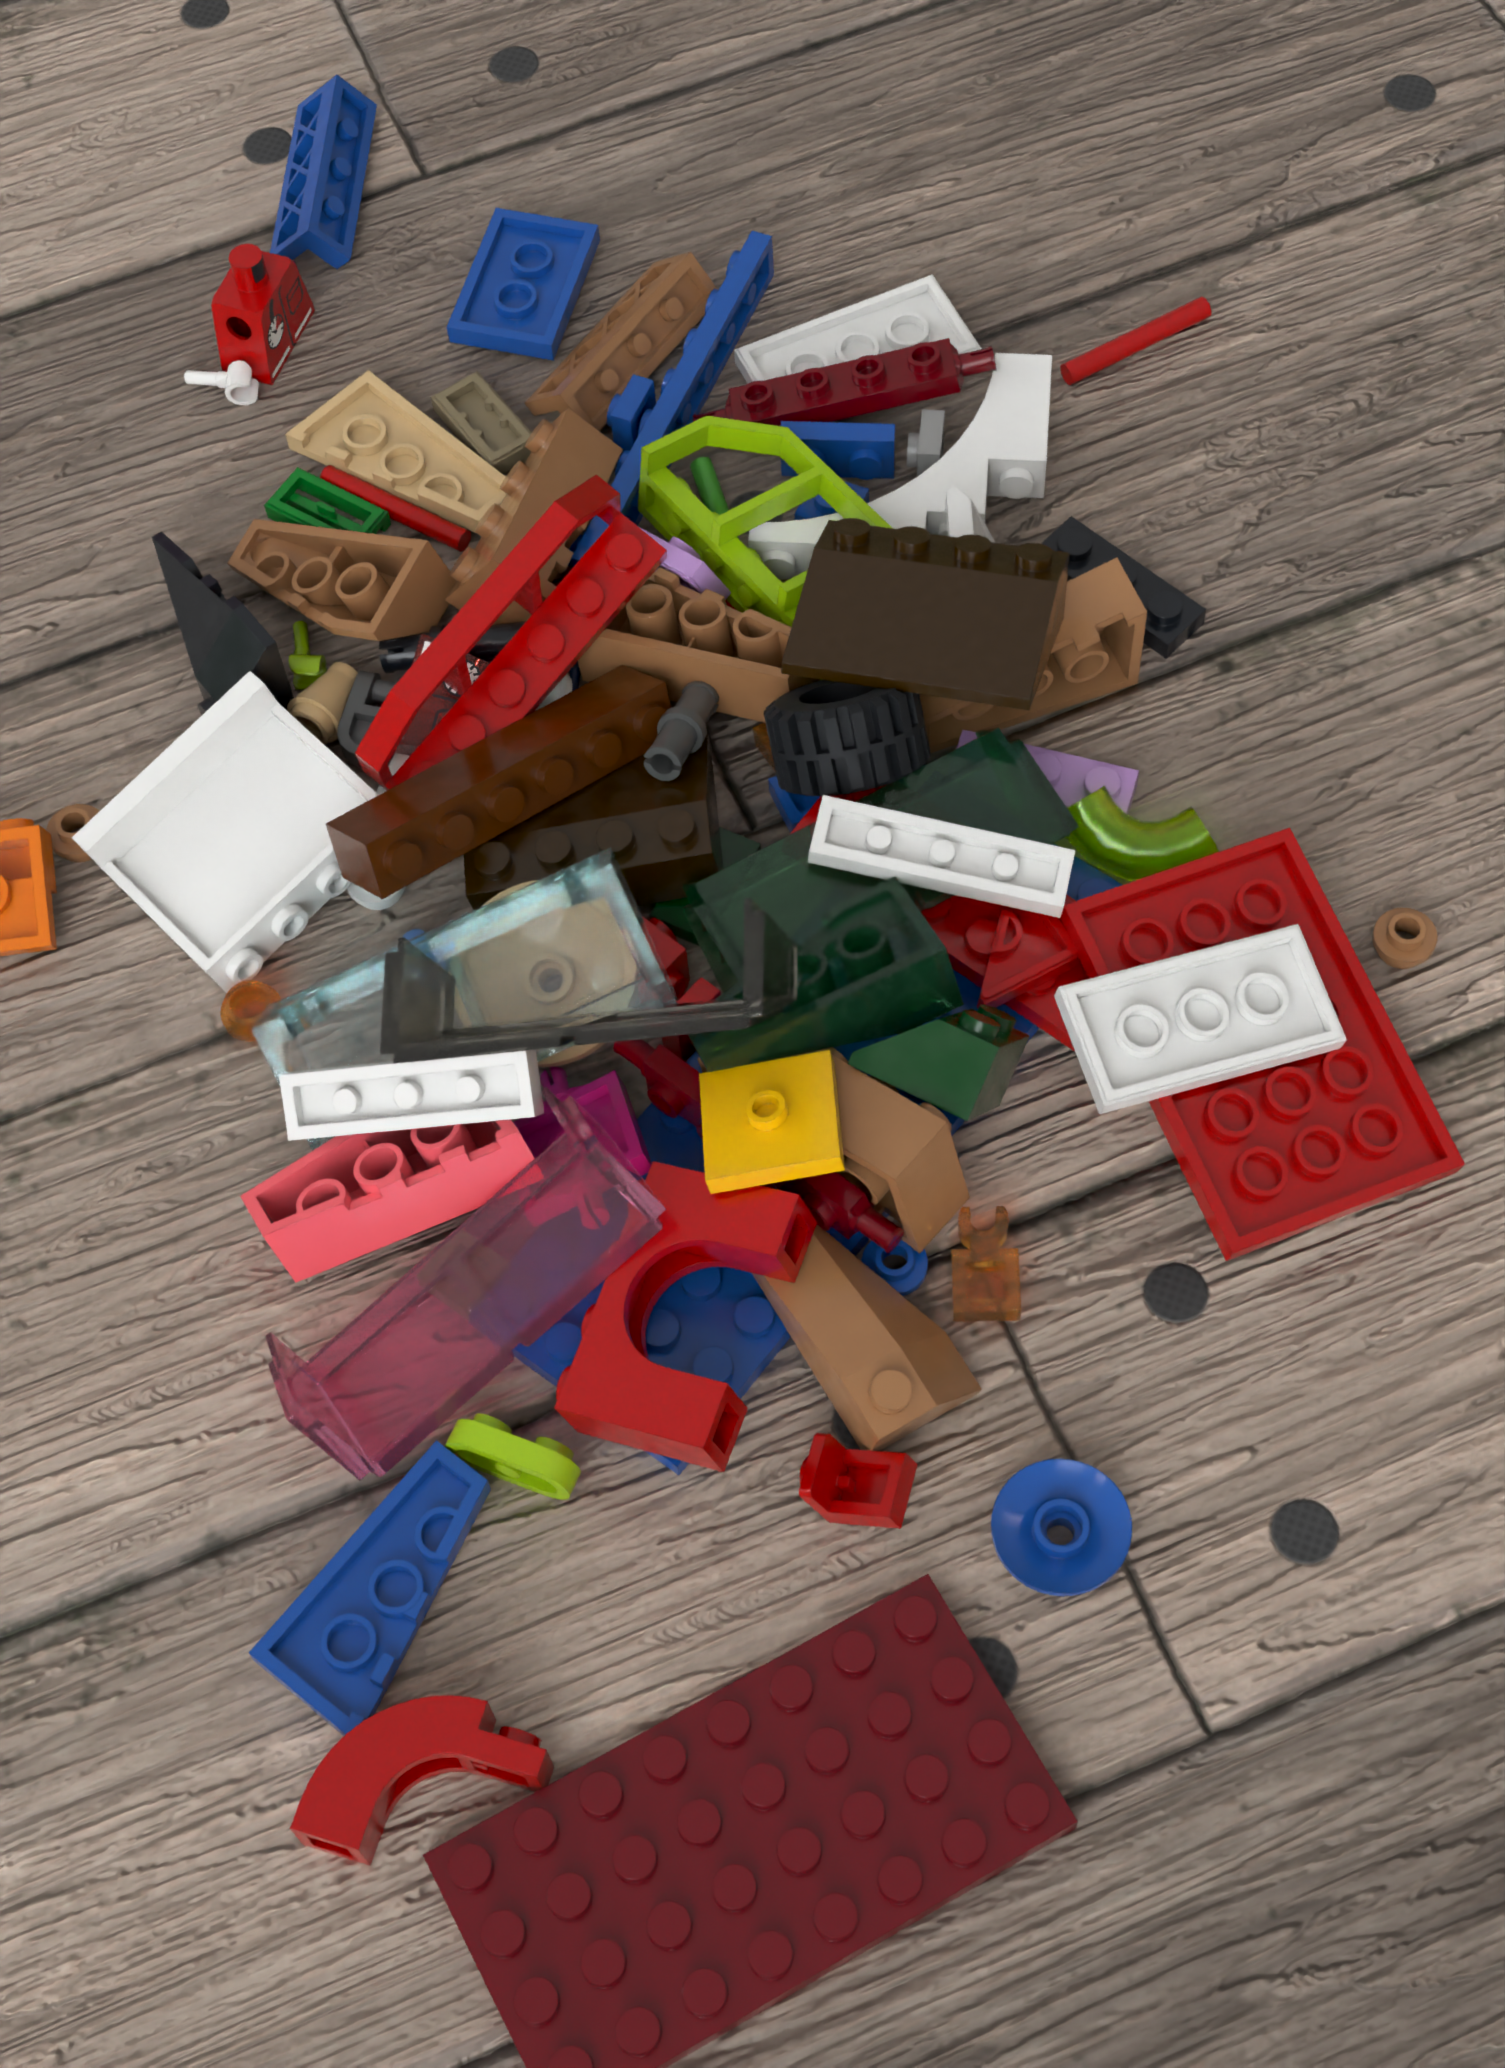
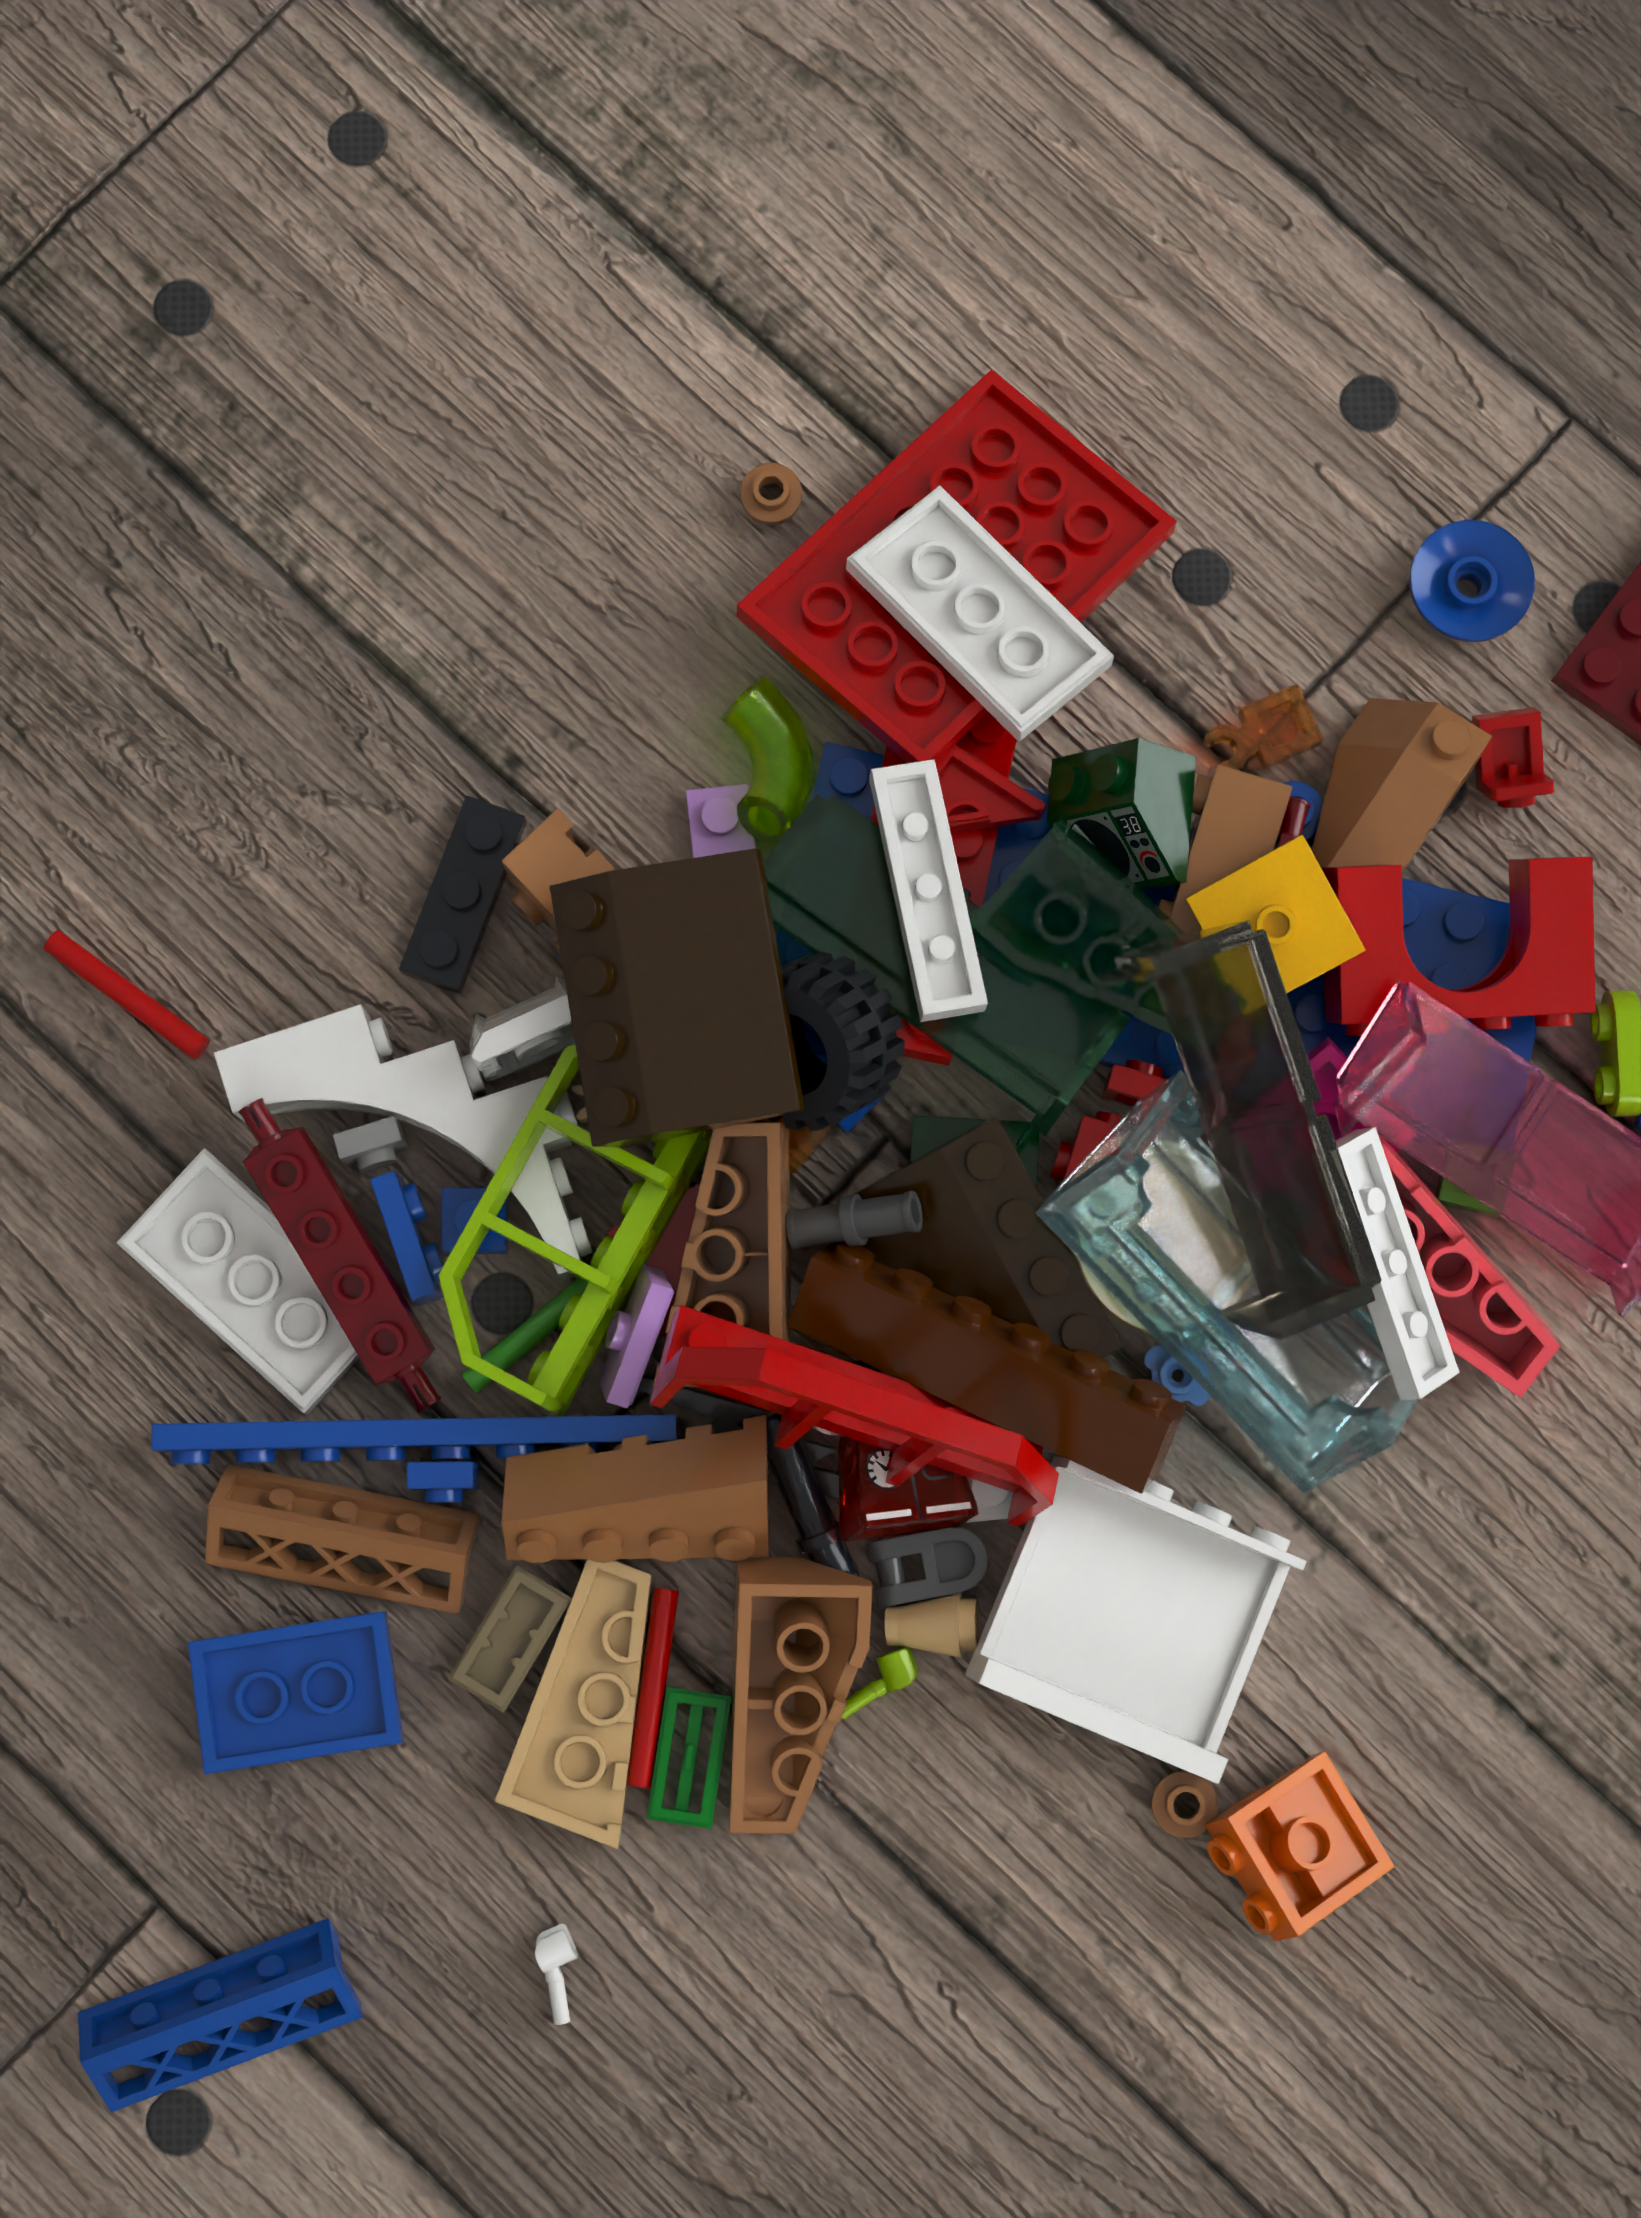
camera: 120 degrees left, 20 degrees up
(218, 632) = (934, 1753): black wedge -> none
(244, 1006) = (1301, 1516): clear orange plate -> none
(260, 311) = (470, 1964): red torso -> none

